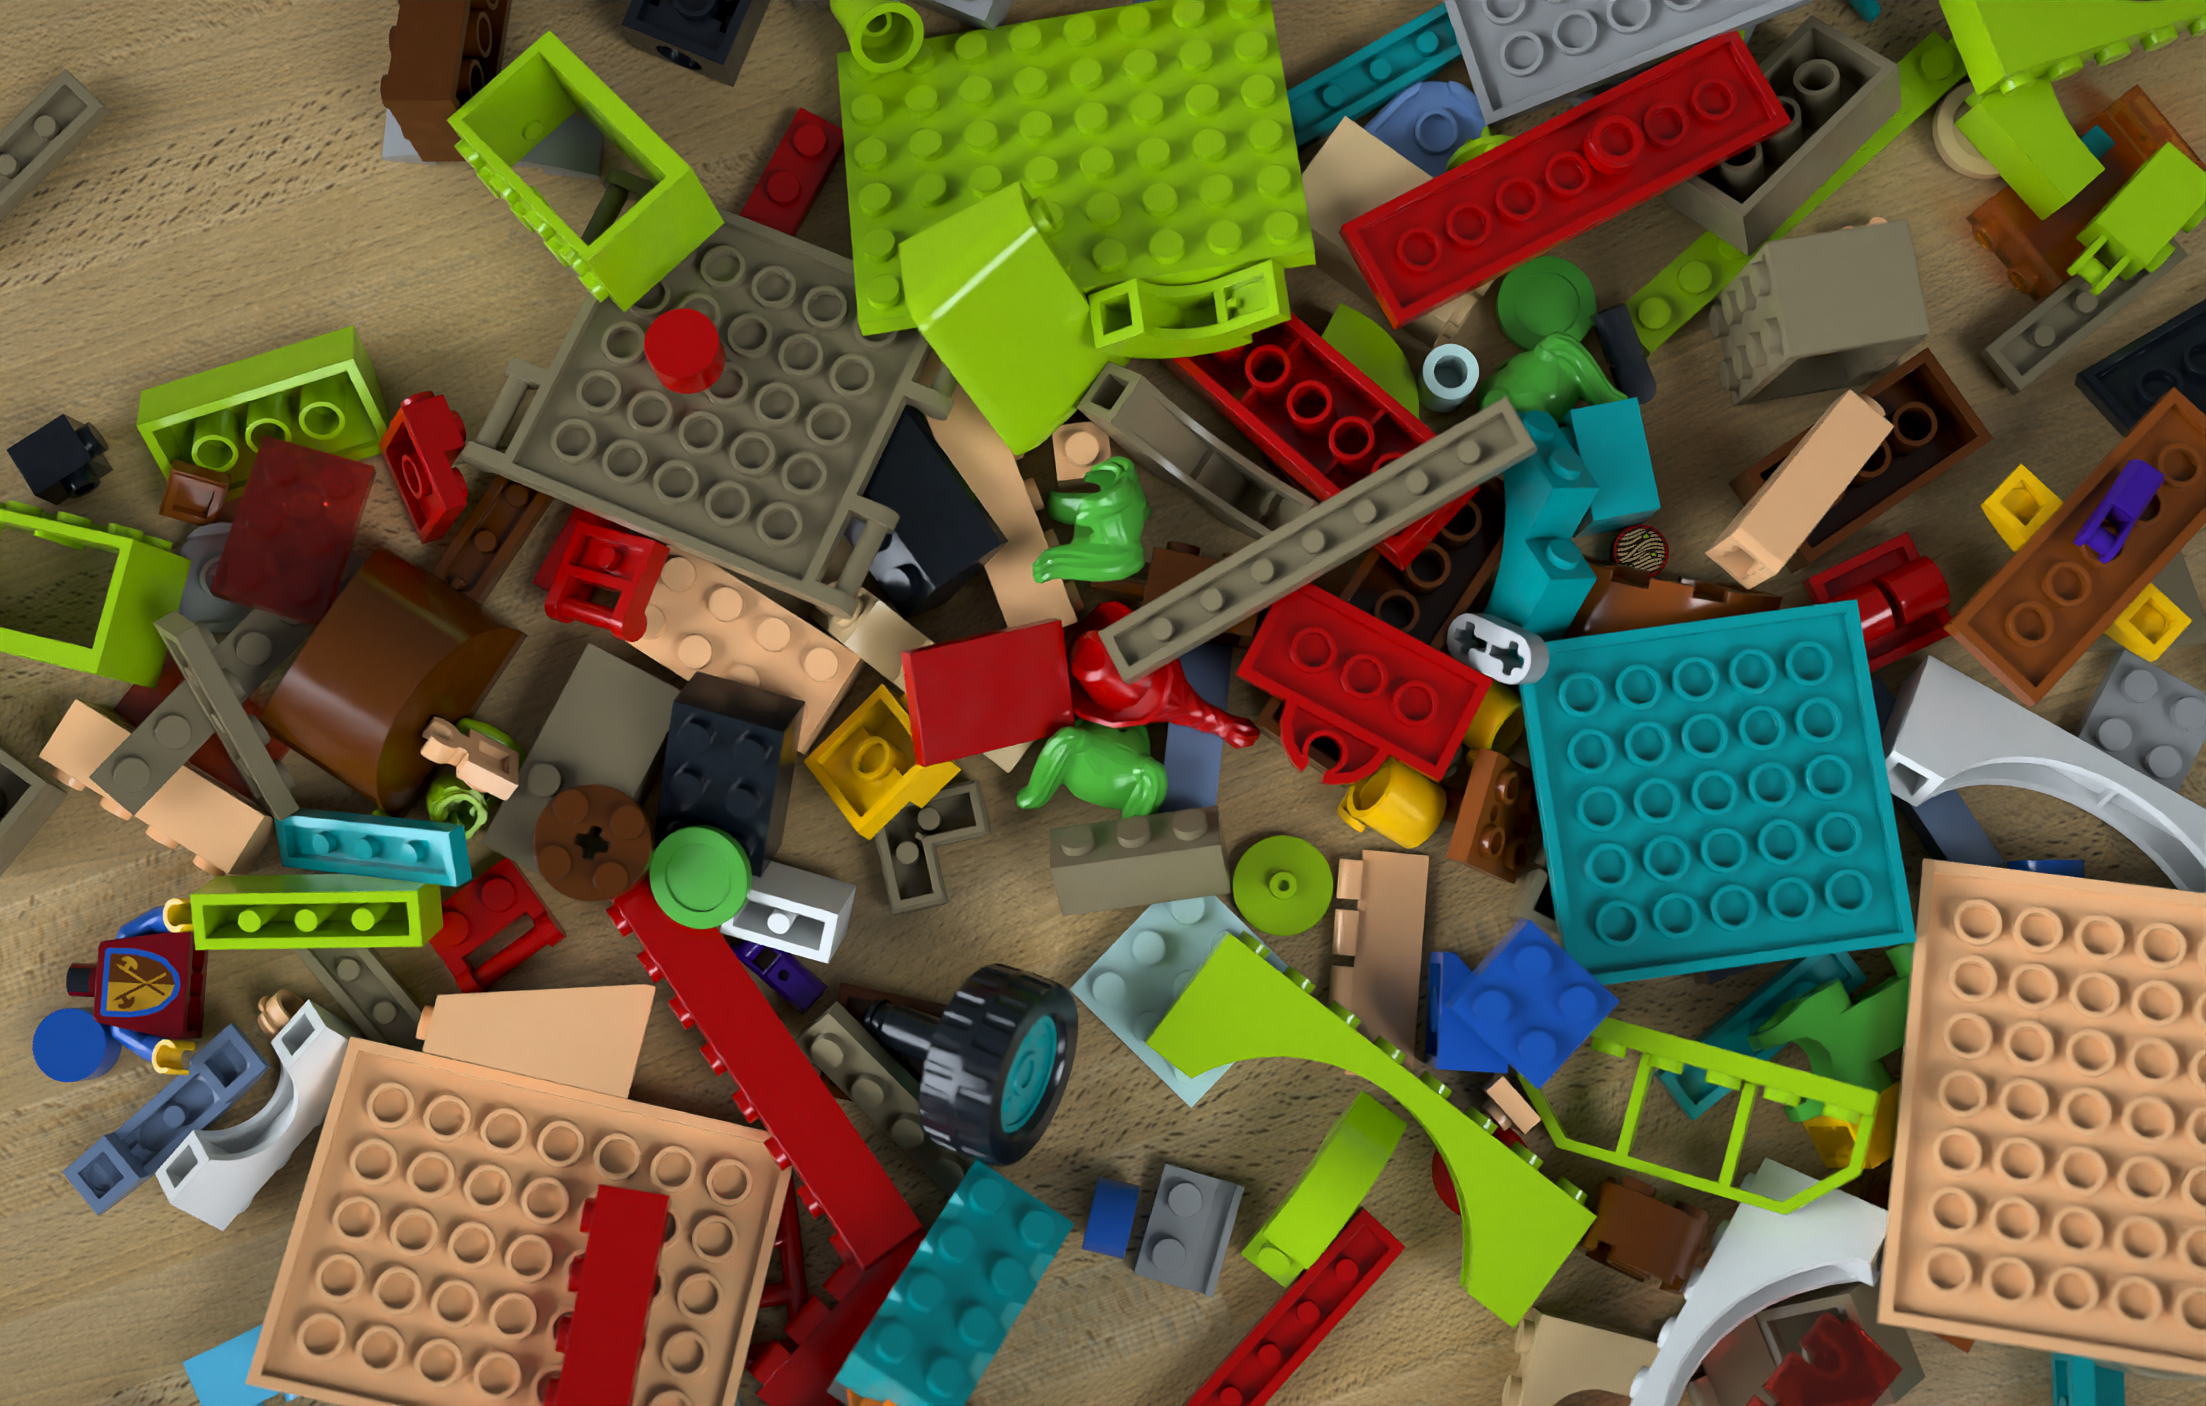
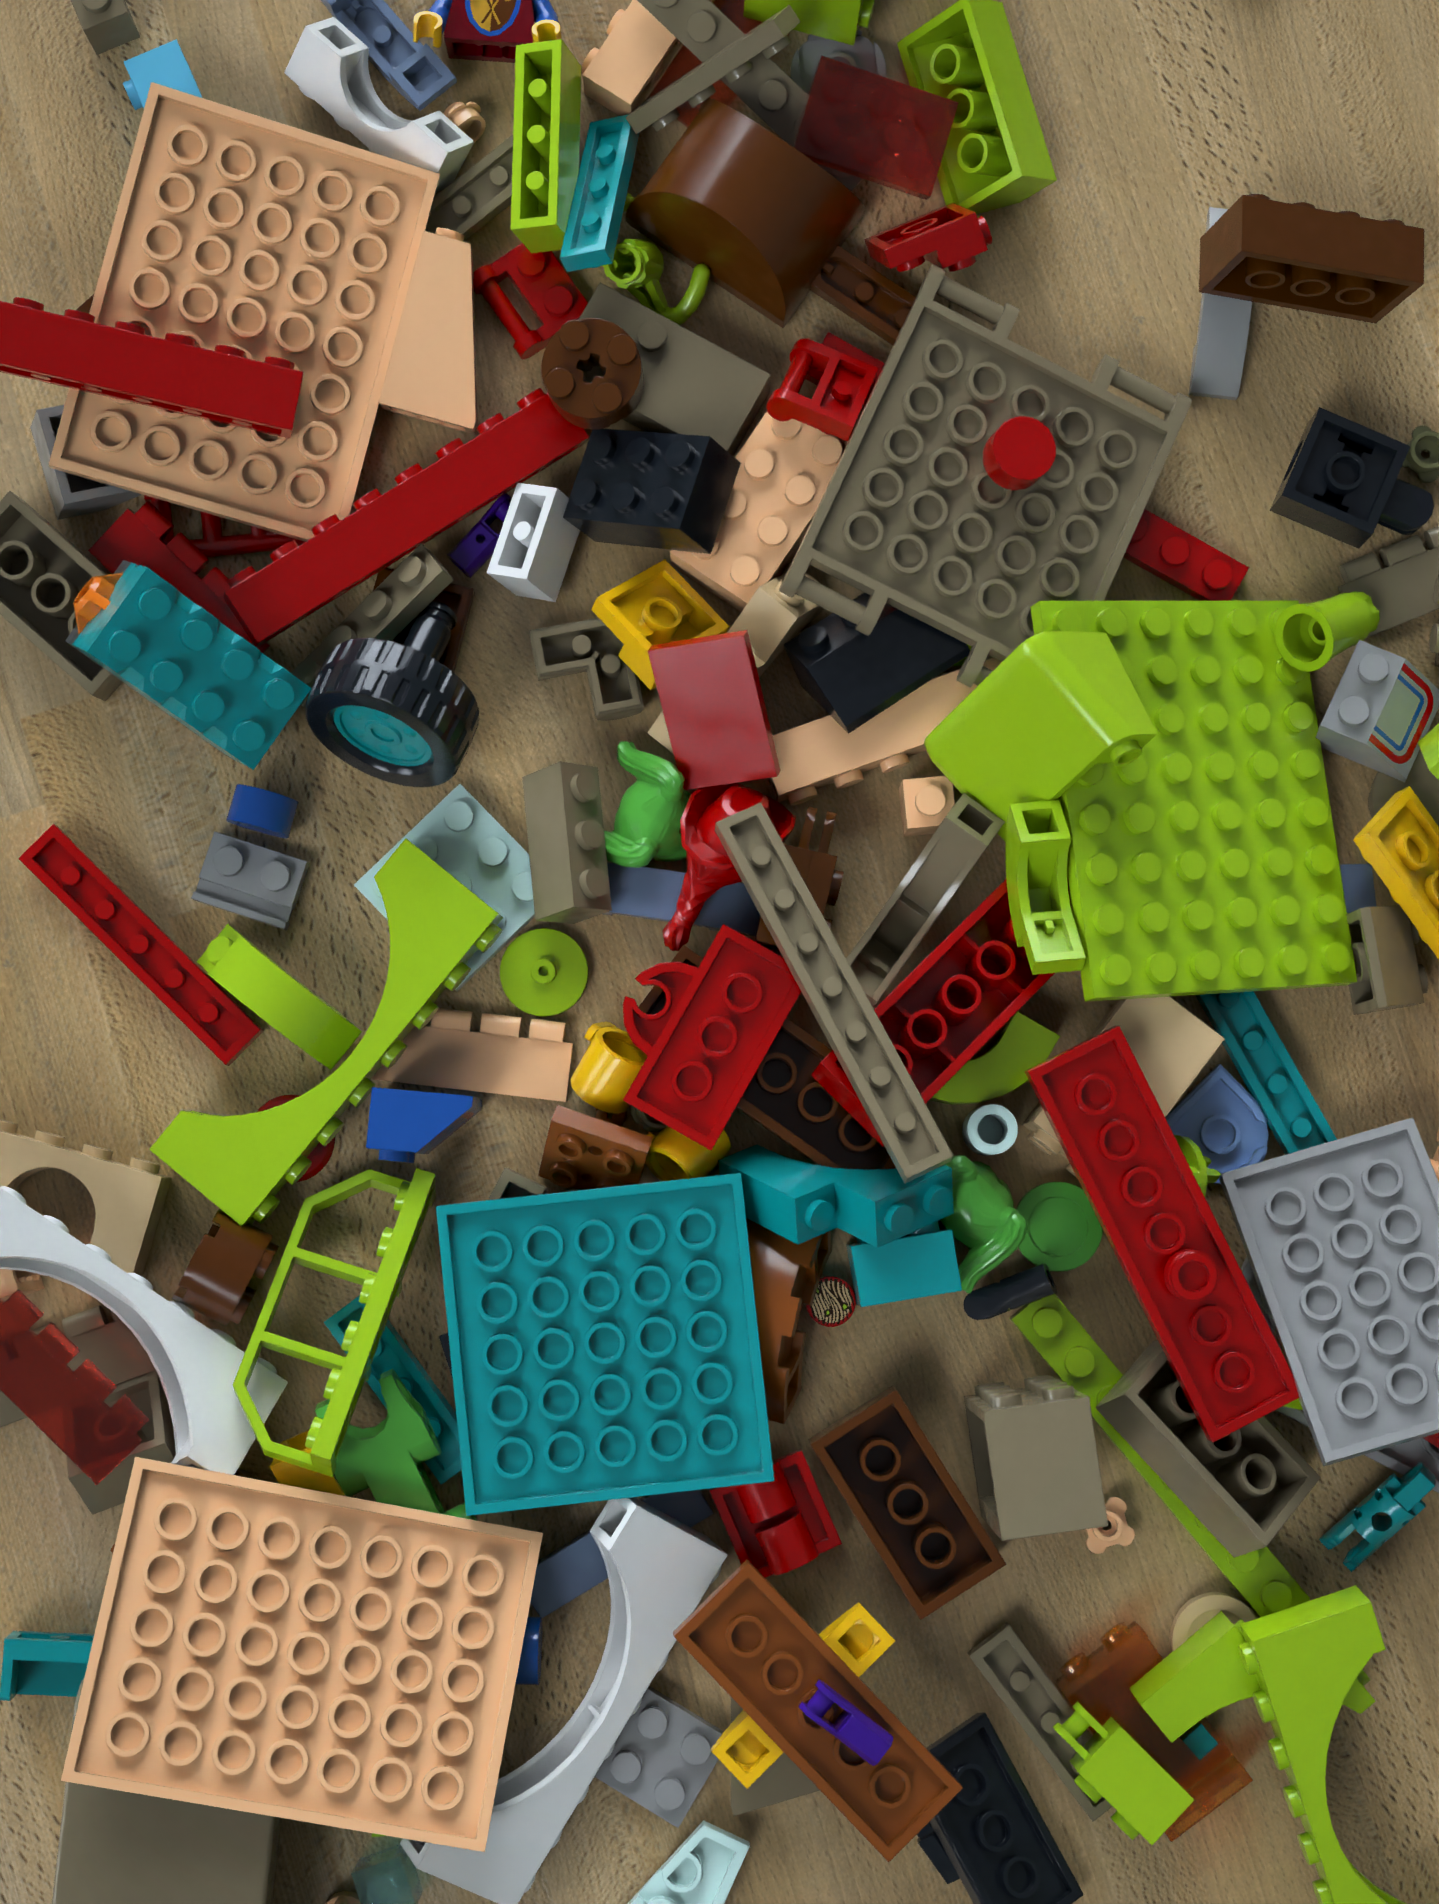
camera: 90 degrees right, 0 degrees up
(194, 494) = (911, 47): dark orange tile -> none
(478, 759) = (672, 279): light nougat plate -> none
(527, 106) = (1237, 316): lime hose -> none
(700, 876) = (563, 464): bright green piece -> none
(1105, 527) = (859, 818): bright green hair -> none
(1500, 637) = (729, 1151): light grey beam -> none
(1507, 1106) = (343, 1158): light nougat plate -> none
(1531, 1002) = (422, 1164): blue brick -> none
(1801, 490) = (876, 1436): light nougat slope -> none

